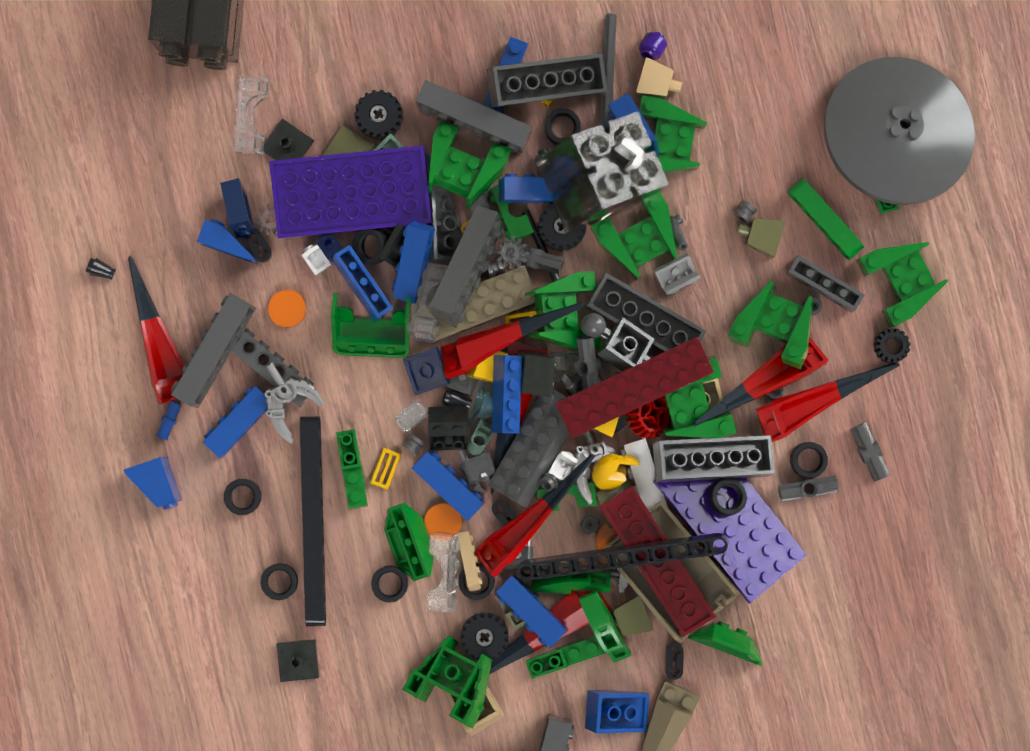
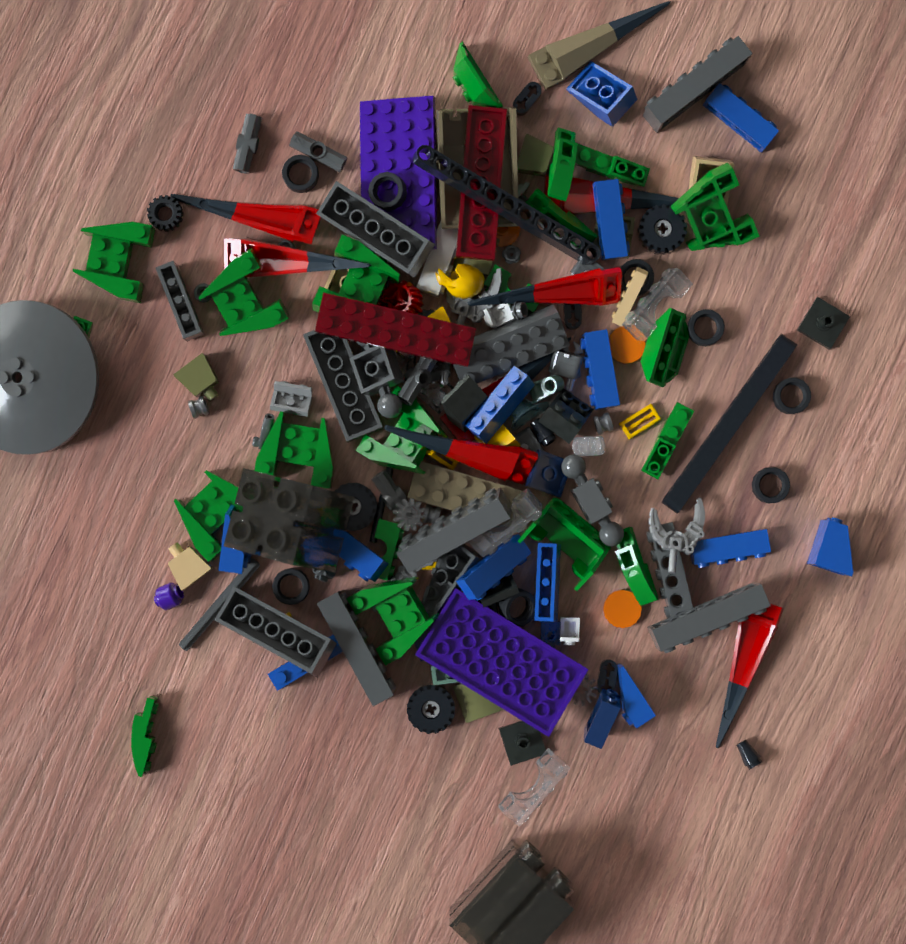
camera: 135 degrees left, 0 degrees up
(169, 420) = (785, 590): blue pin -> none
(302, 346) = (635, 570): none -> green slope
(375, 373) = (592, 501): none -> dark grey brick
(630, 151) = (254, 514): white bracket -> none
(825, 219) = (139, 353): green beam -> none

